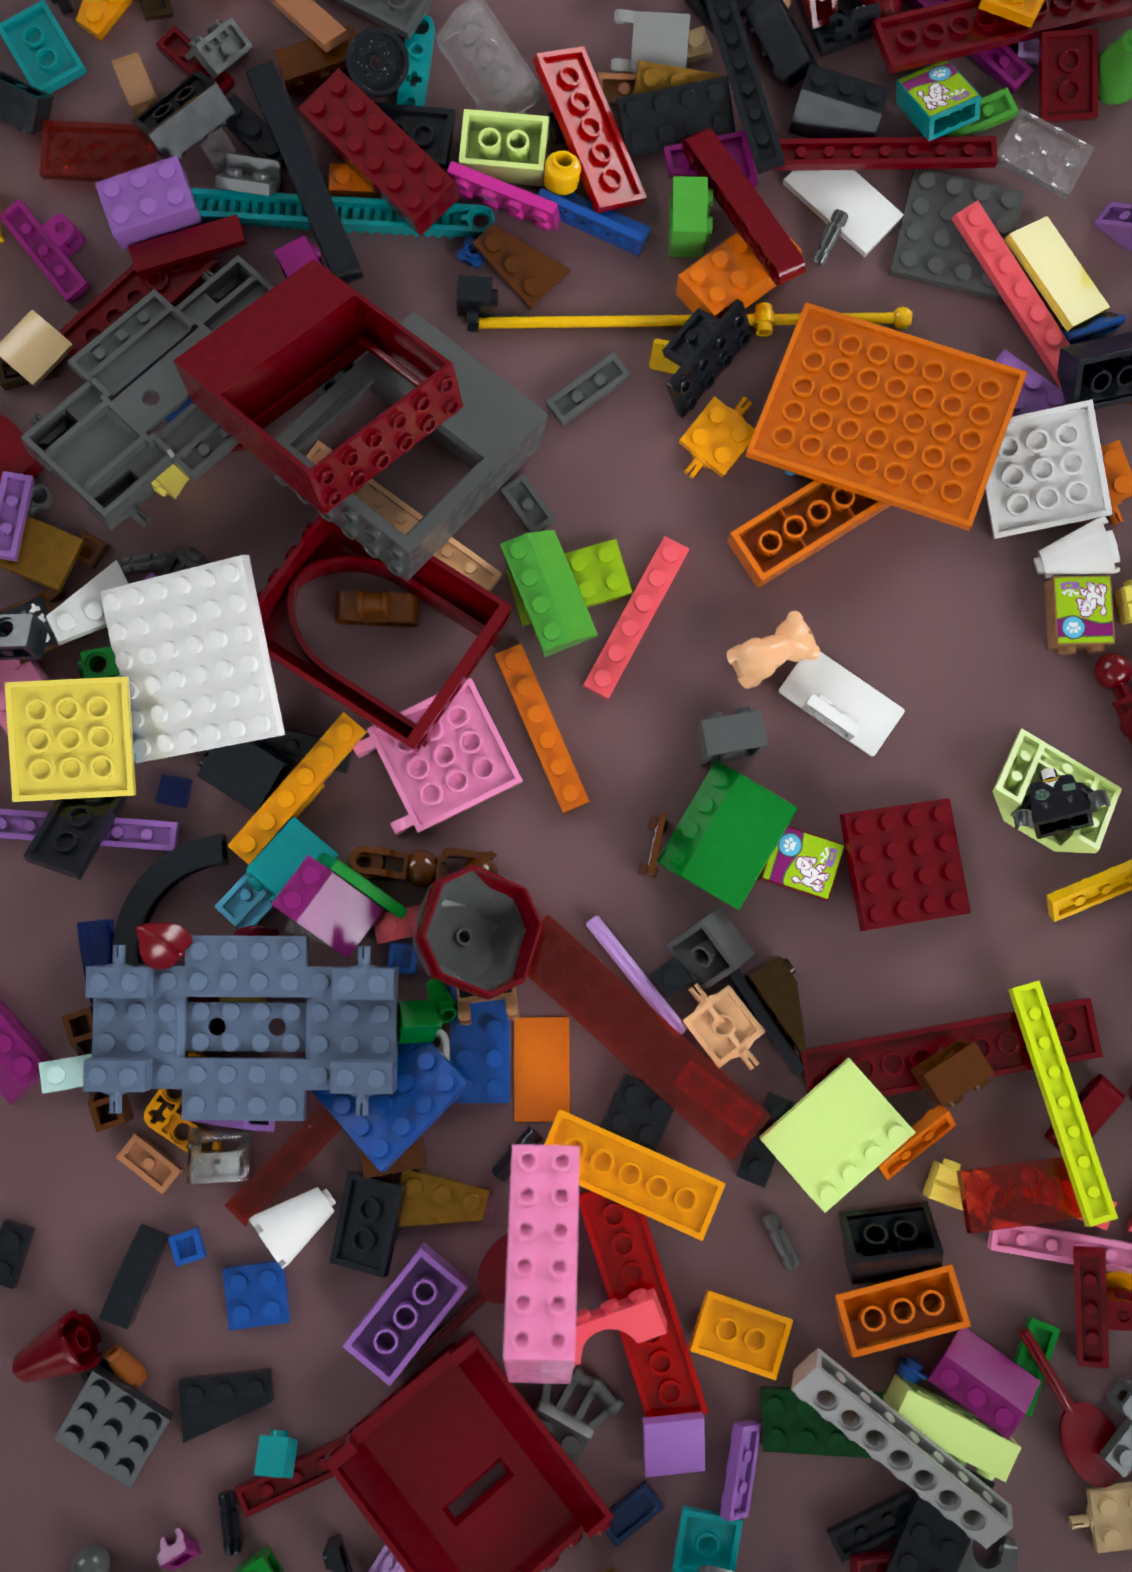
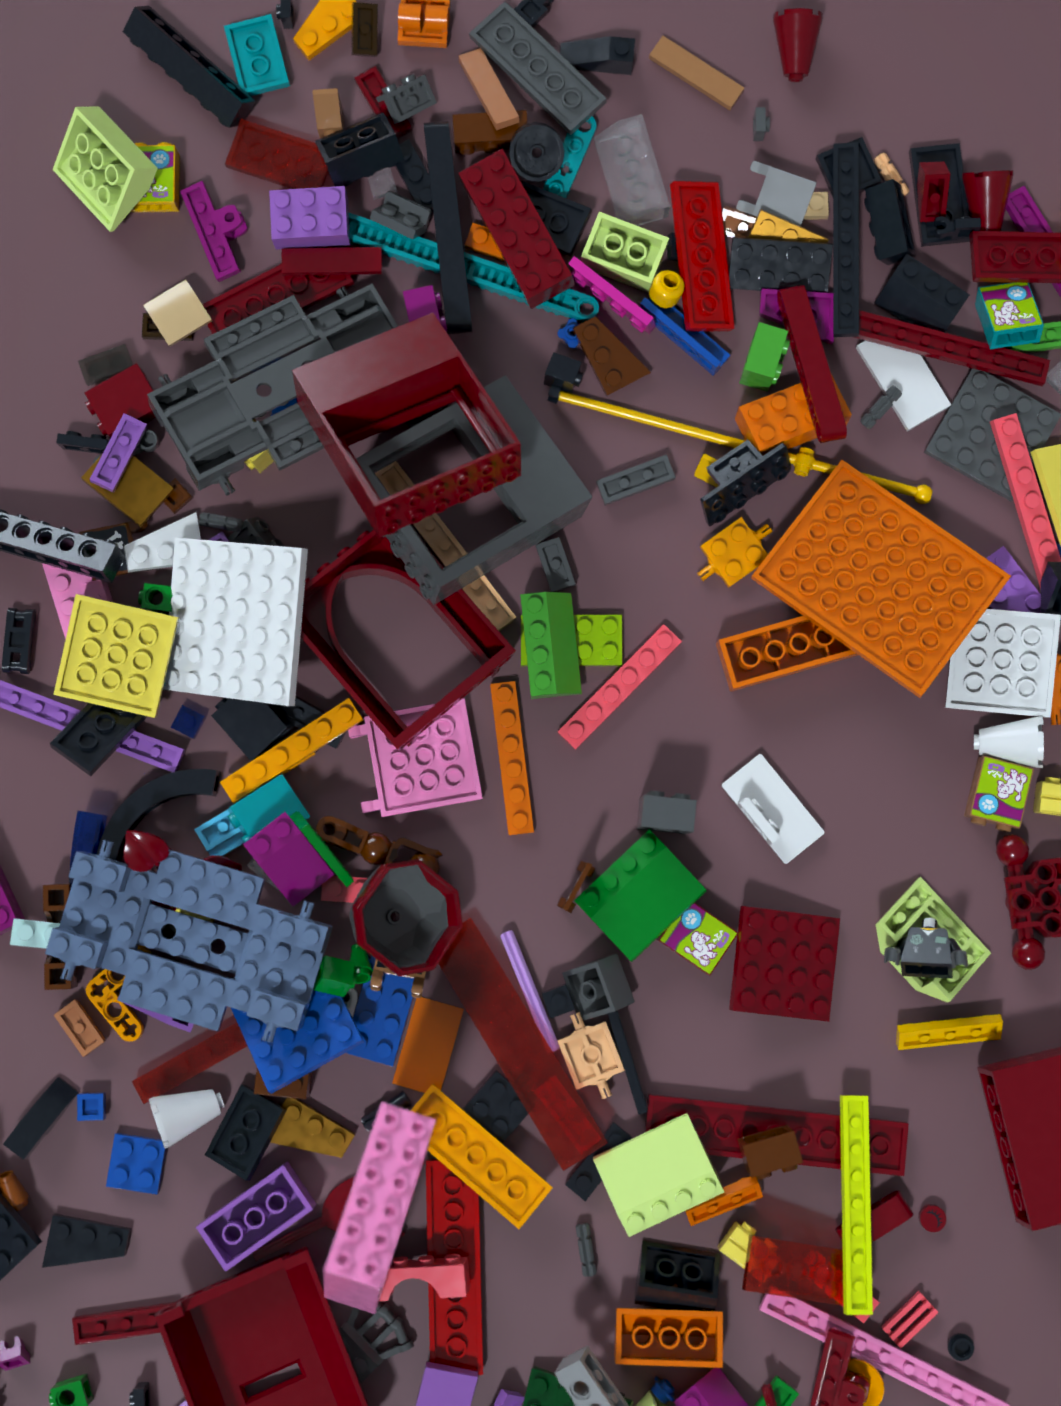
camera: 20 degrees right, 0 degrees up
(218, 1165) = (137, 1046): clear smoke plate -> none
(229, 1522) = (61, 1345): black axle -> none
(276, 1455) = (115, 1300): teal brick -> none
(376, 608) = (402, 617): reddish brown piece -> none
(402, 956) = (338, 917): blue tile -> none
(740, 1334) = (529, 1317): light orange plate -> none
(760, 657) = (711, 753): light nougat animal -> none
(779, 994) = (644, 1040): dark brown slope -> none

